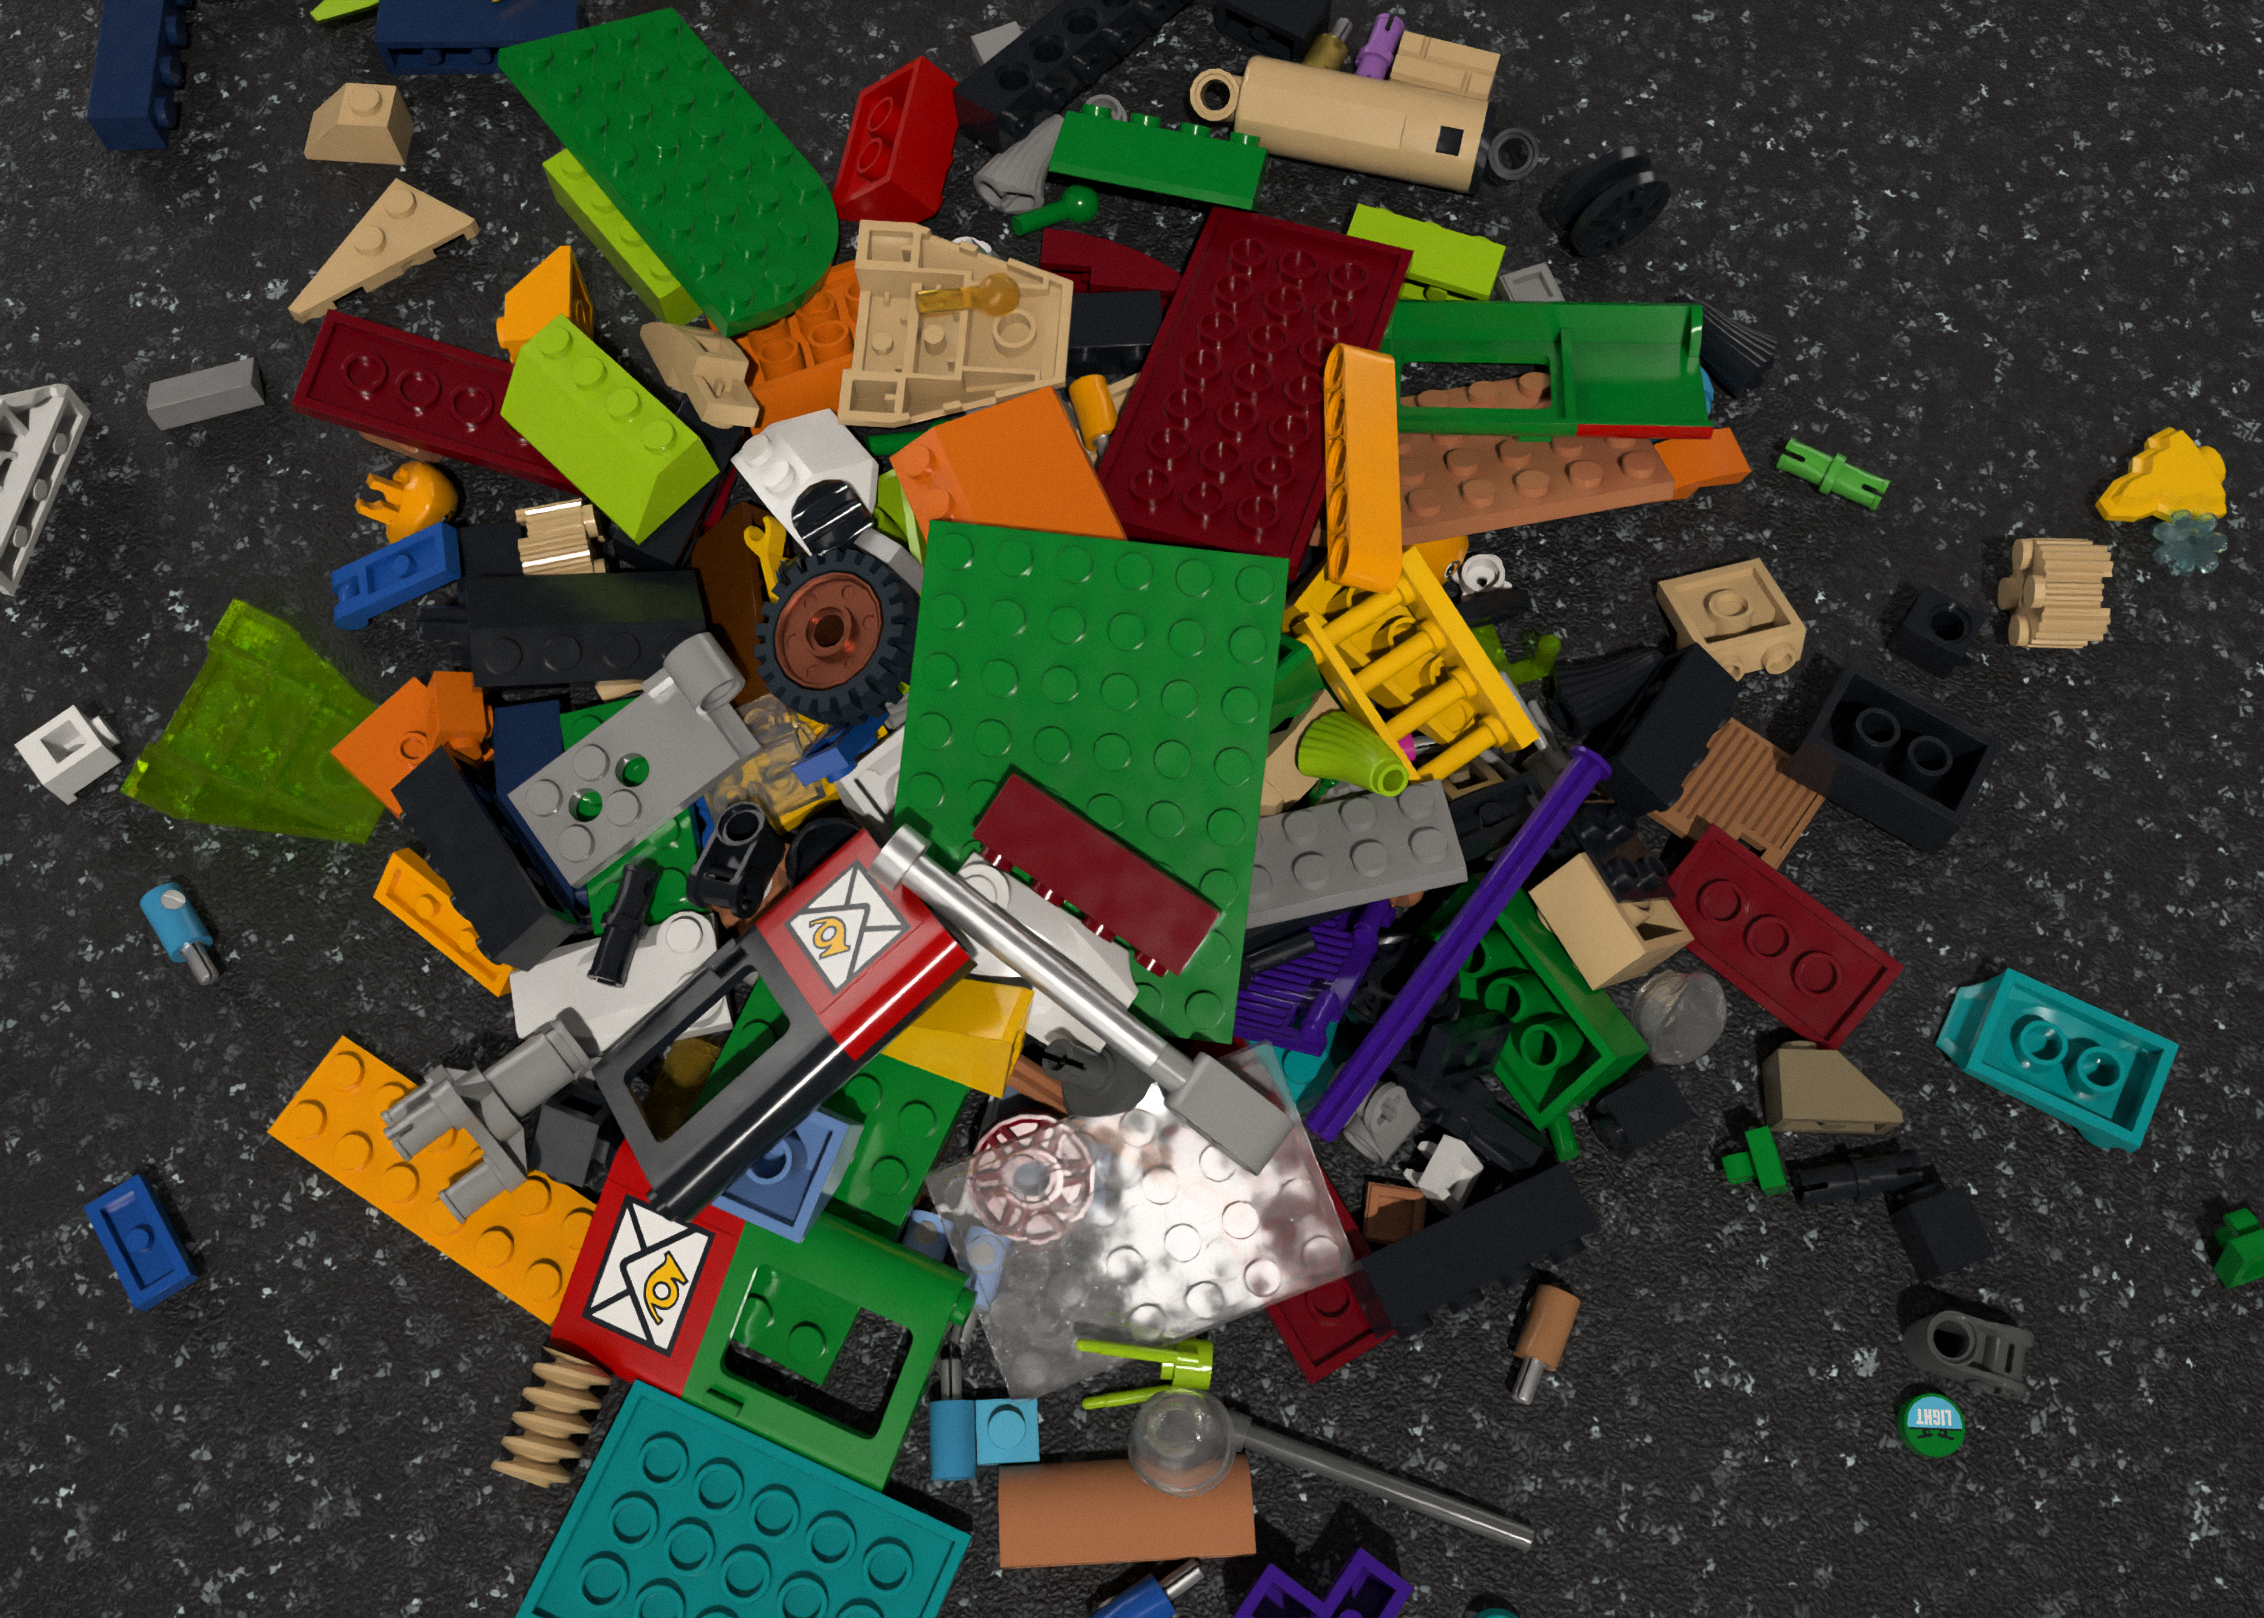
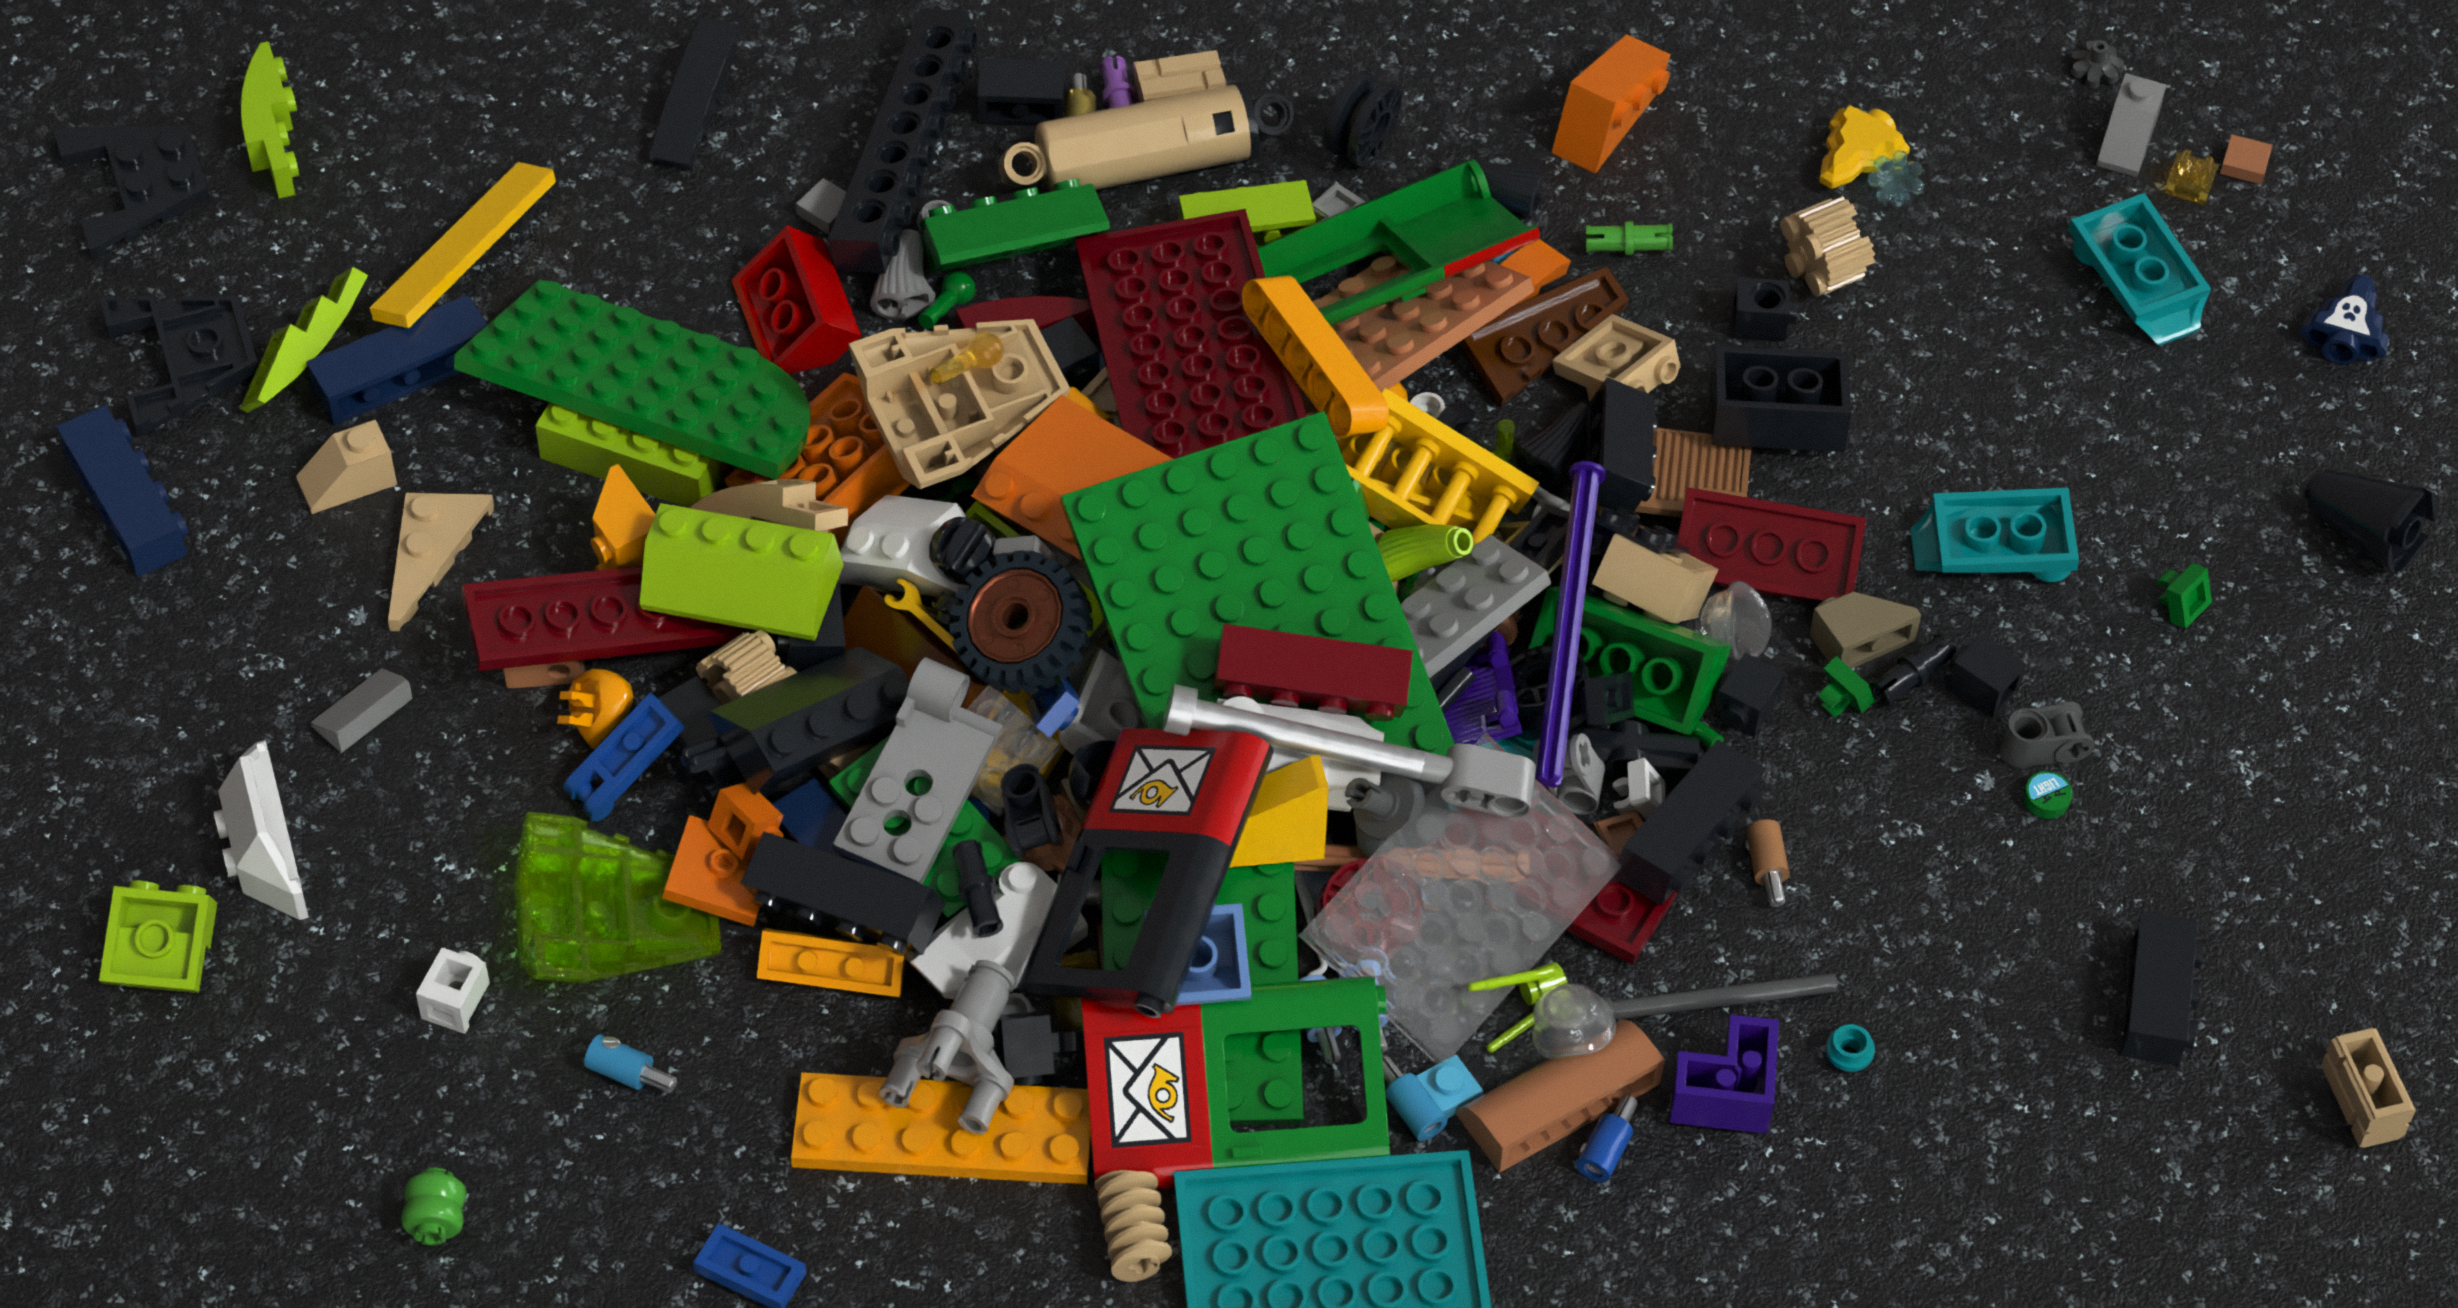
camera: 30 degrees left, 15 degrees down
(1666, 539) = (1526, 337): none -> reddish brown wing
(1904, 300) = (1608, 101): none -> orange wedge

